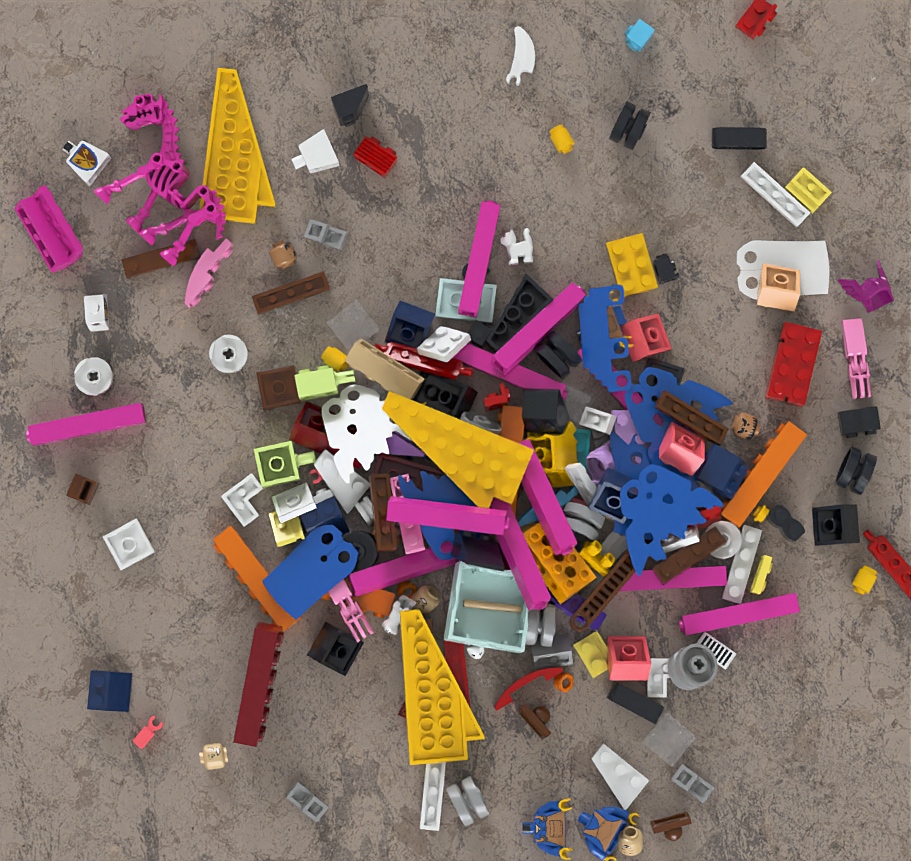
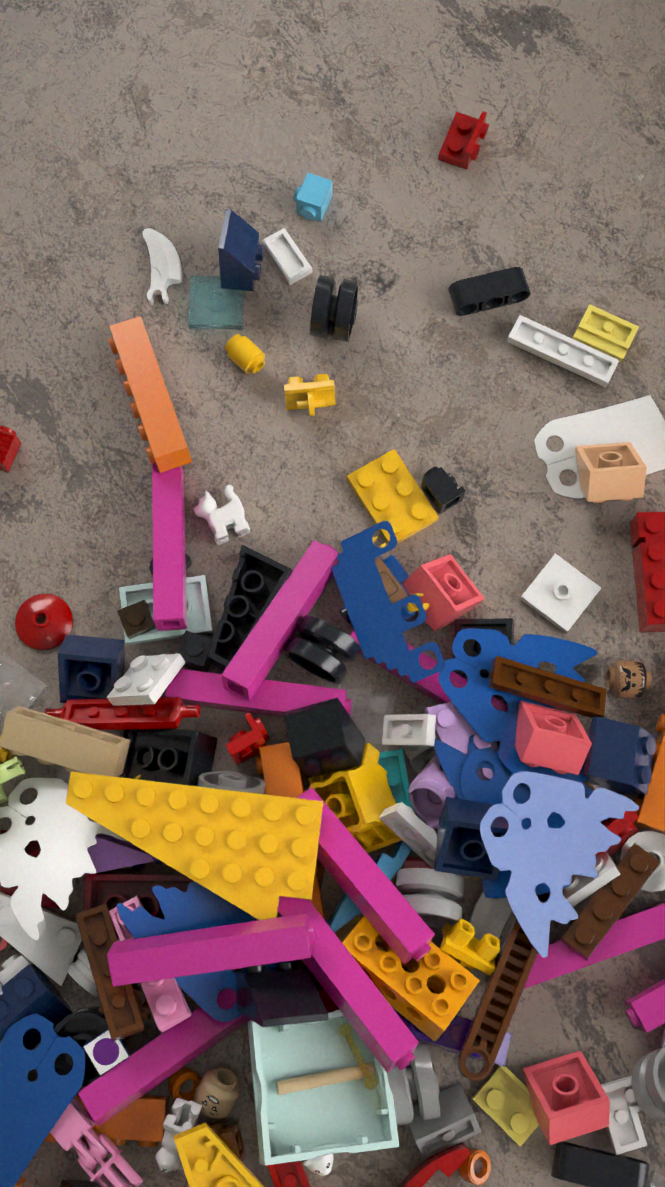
camera: 15 degrees left, 10 degrees down
(369, 556) = (104, 1052): none -> tile
(388, 295) = (53, 630): none -> red dish
(446, 302) = (136, 619): none -> dark brown plate
(492, 152) = (150, 394): none -> orange brick
(517, 614) = (370, 1080): none -> clear yellow hinge
(552, 94) = (214, 307): none -> clear light blue tile
(576, 68) = (239, 253): none -> dark blue slope
(597, 181) = (309, 394): none -> yellow hips
(609, 73) = (287, 256): none -> white tile
(721, 359) = (560, 593): none -> white plate

